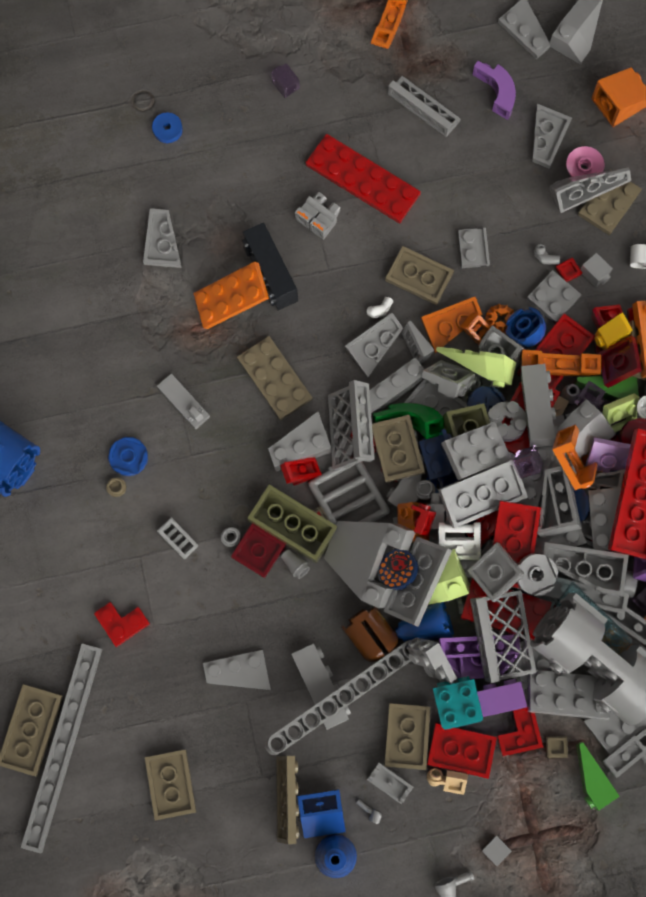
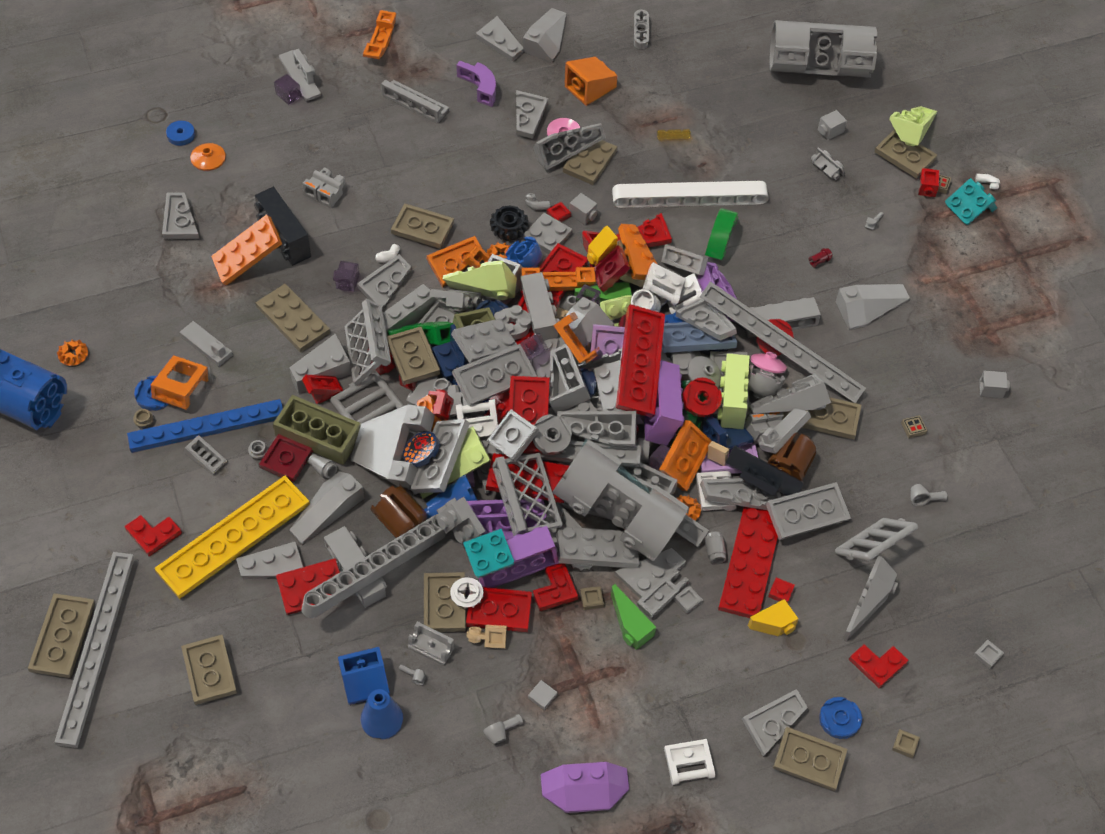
camera: 15 degrees left, 20 degrees down
(44, 407) = (70, 359): none -> orange gear
(148, 463) = (175, 392): none -> orange window
(179, 501) = (204, 426): none -> blue plate
(195, 168) = (208, 156): none -> orange dish
(200, 637) = (231, 537): none -> yellow plate
(274, 703) = (298, 582): none -> red plate
(286, 799) = (327, 667): dark tan plate -> none
(299, 607) = (329, 503): none -> light grey wedge
(300, 59) = (301, 72): none -> light grey bracket
(334, 334) = (346, 276): none -> clear purple brick
(363, 178) = (364, 158): red plate -> none
(416, 343) = (427, 276): light grey slope -> none
(422, 739) = (460, 586): none -> white gear
(473, 248) = (470, 202): light grey plate -> none
(513, 291) = (509, 223): none -> black gear

